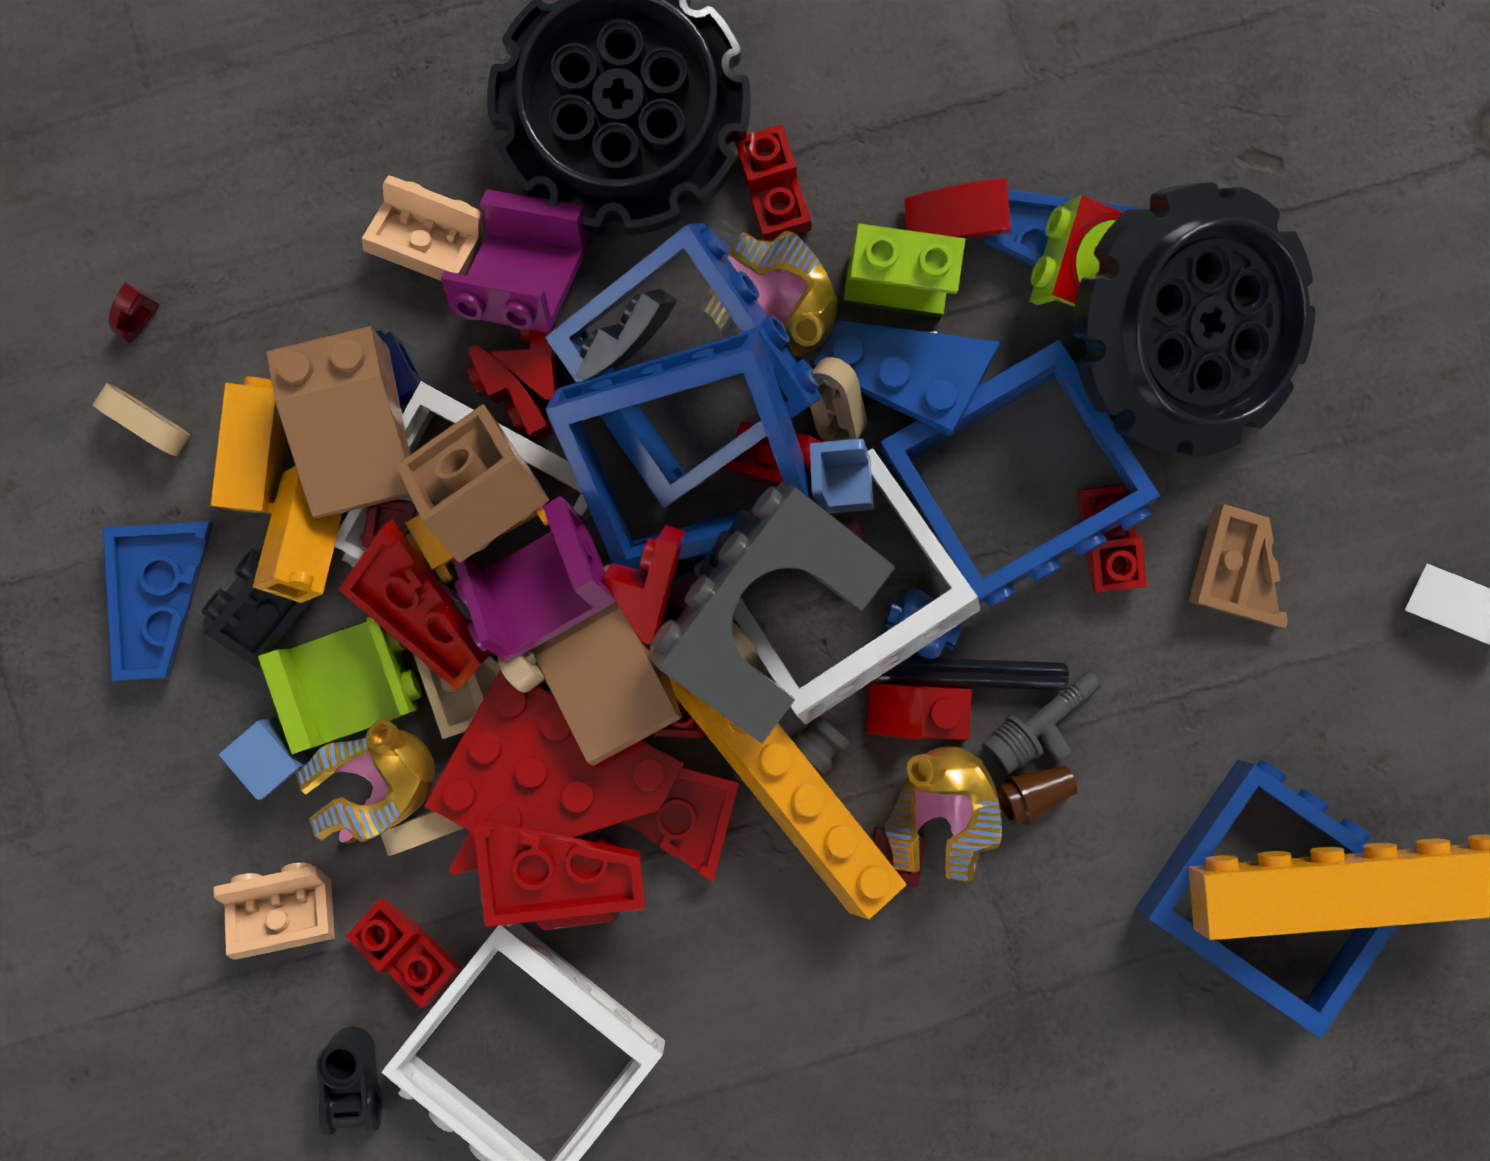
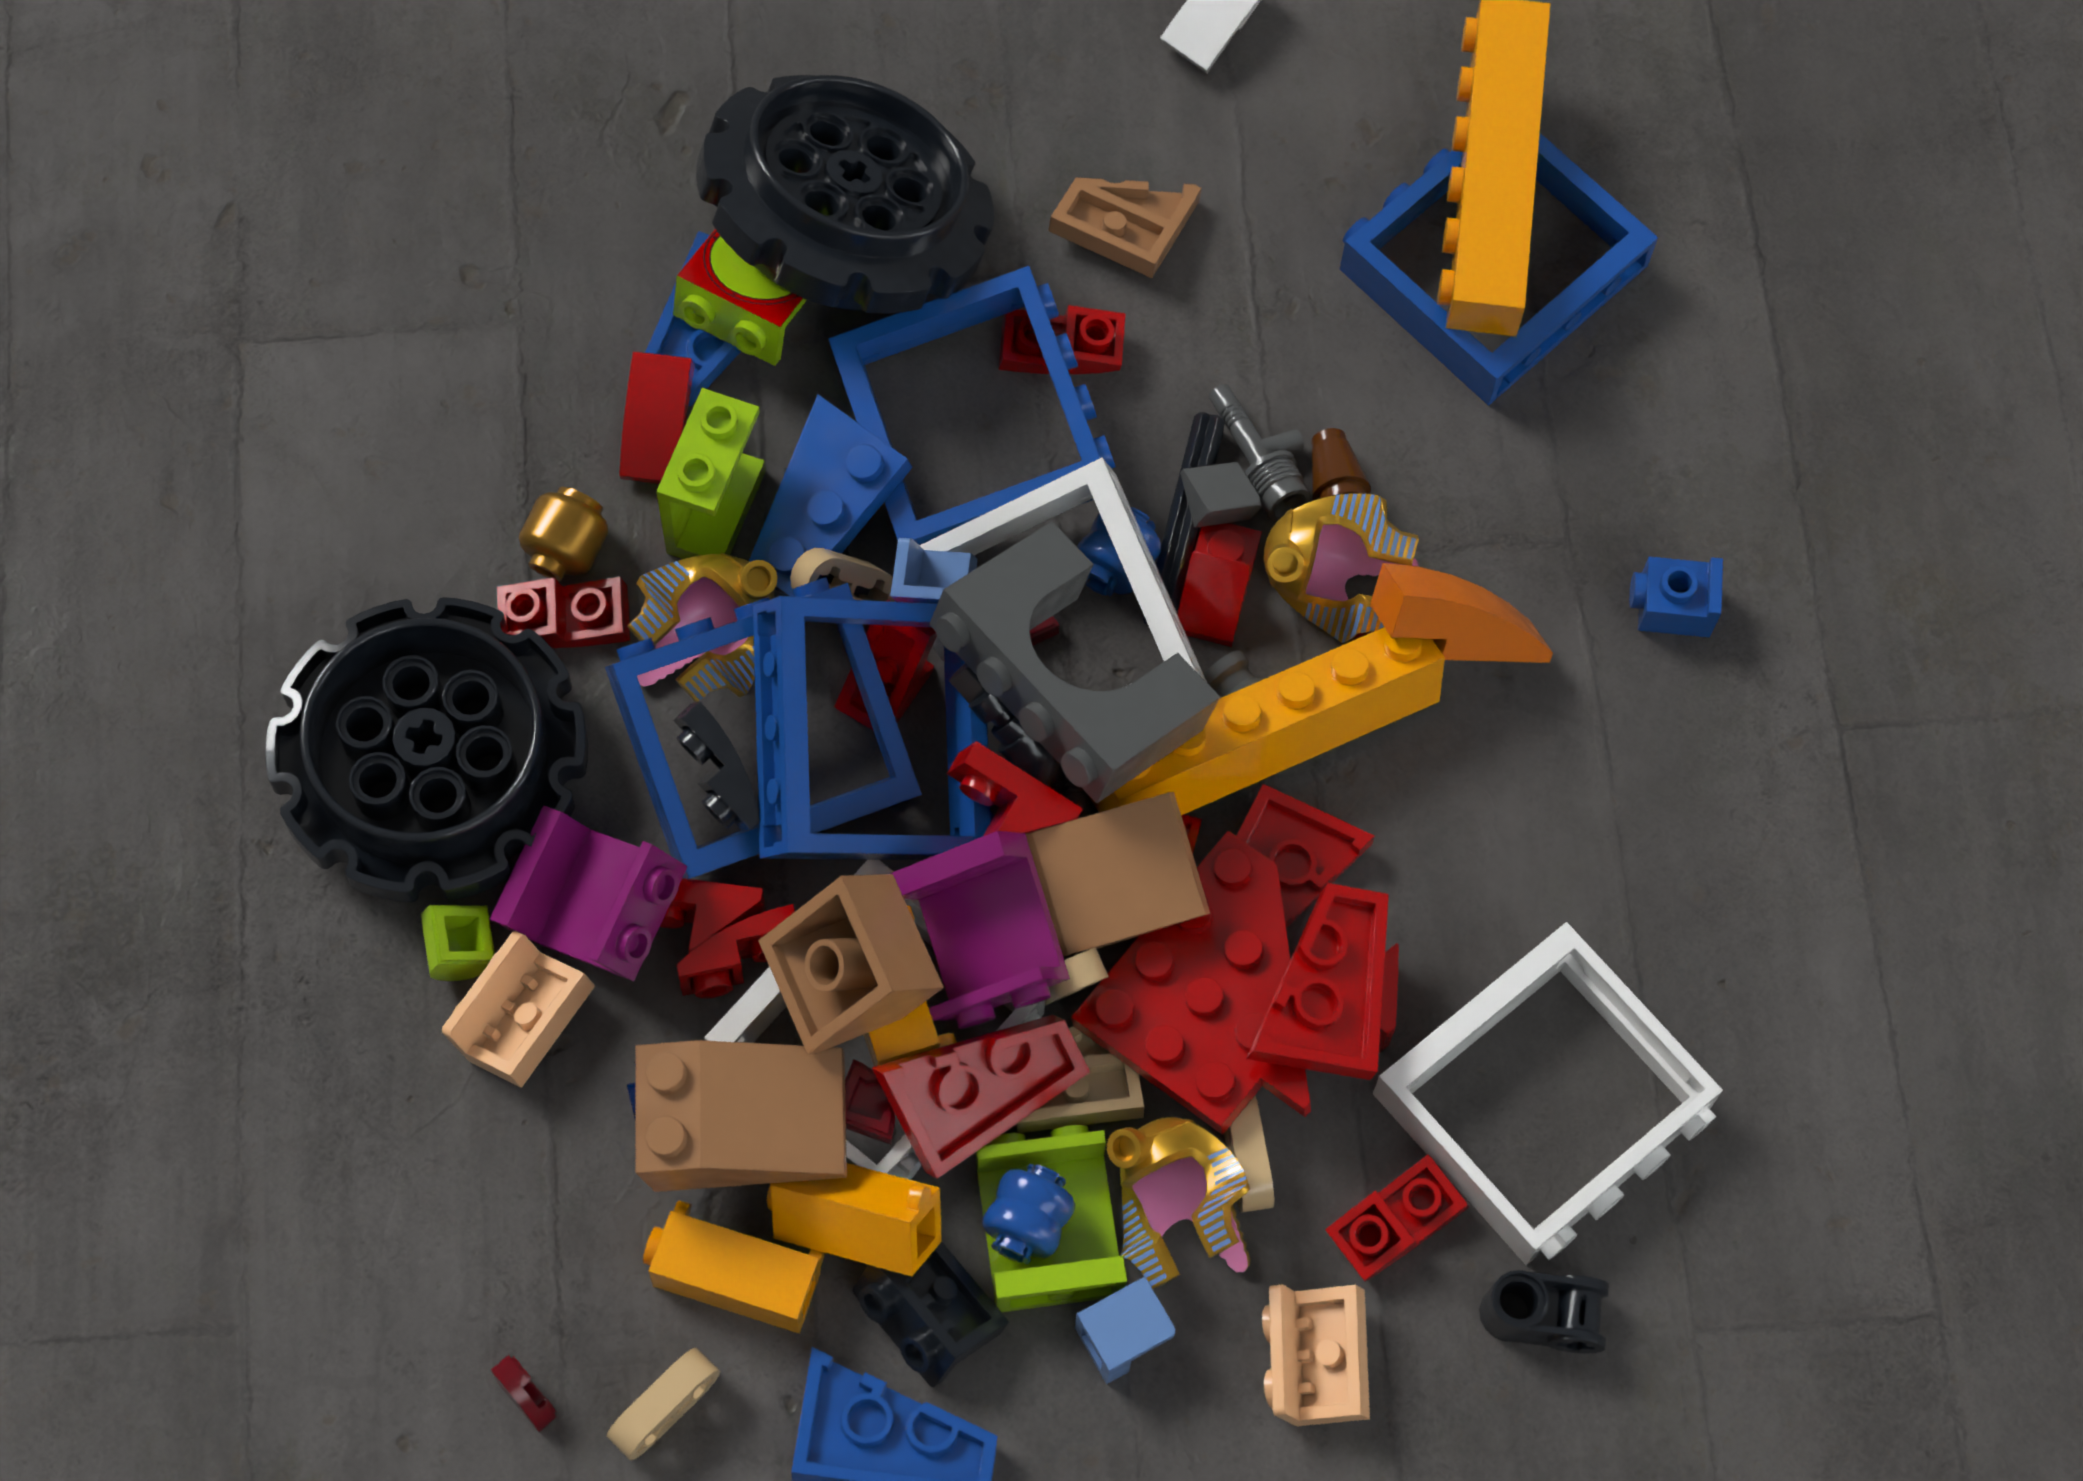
camera: 80 degrees left, 20 degrees down
(336, 666) = (1028, 1213): none -> blue piece
(473, 170) = (457, 941): none -> lime brick
(837, 164) = (563, 533): none -> pearl gold head
(912, 920) = (1456, 615): none -> orange slope
(989, 1121) = (1674, 612): none -> blue brick
(992, 698) = (1219, 494): none -> dark grey slope

